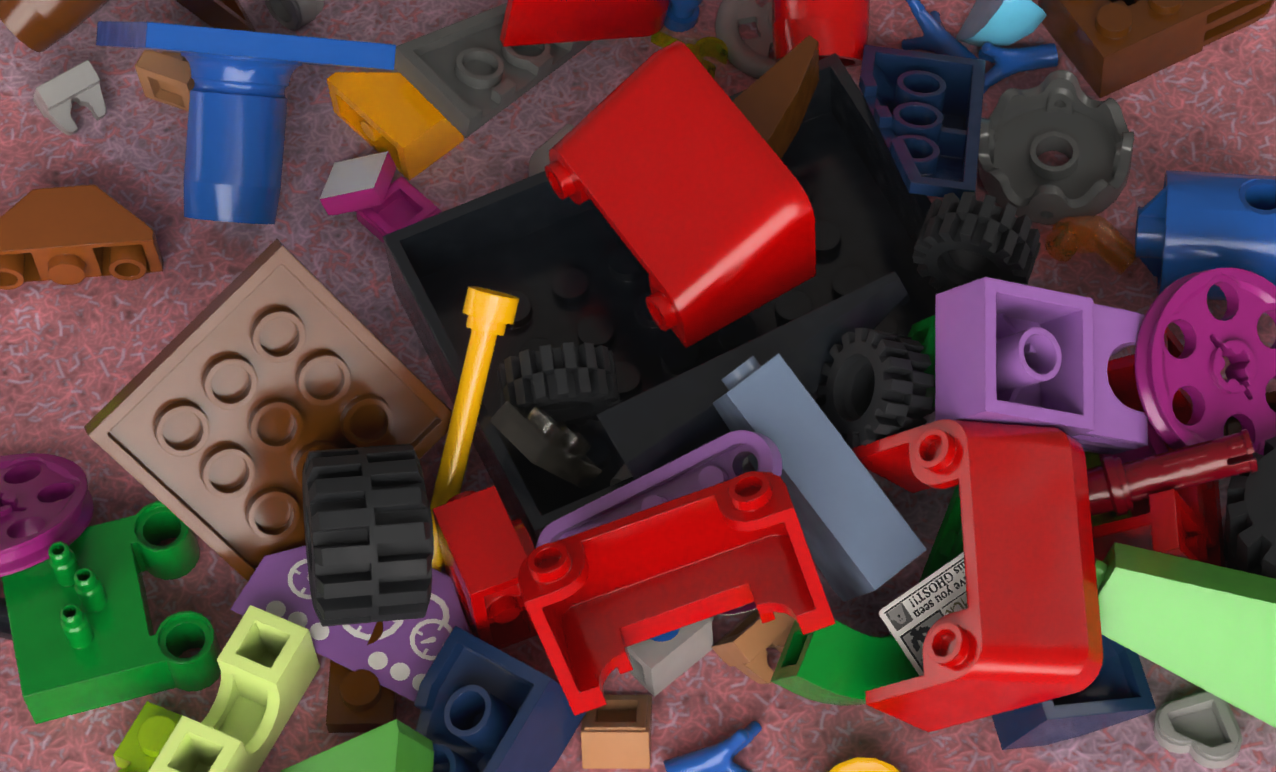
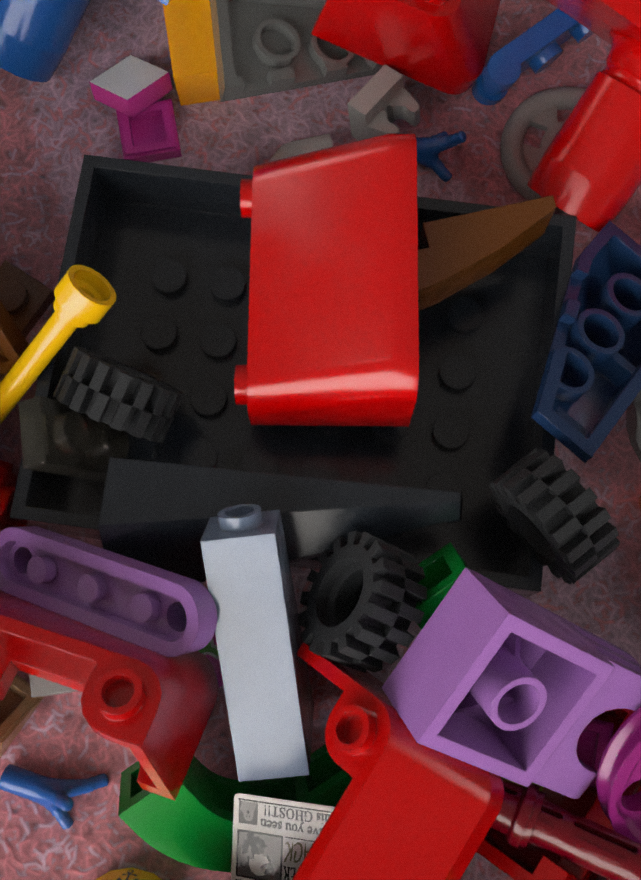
camera: 30 degrees right, 20 degrees up
(600, 71) = (380, 104): none -> light grey tile
(703, 48) = (476, 129): clear neon green hand -> none

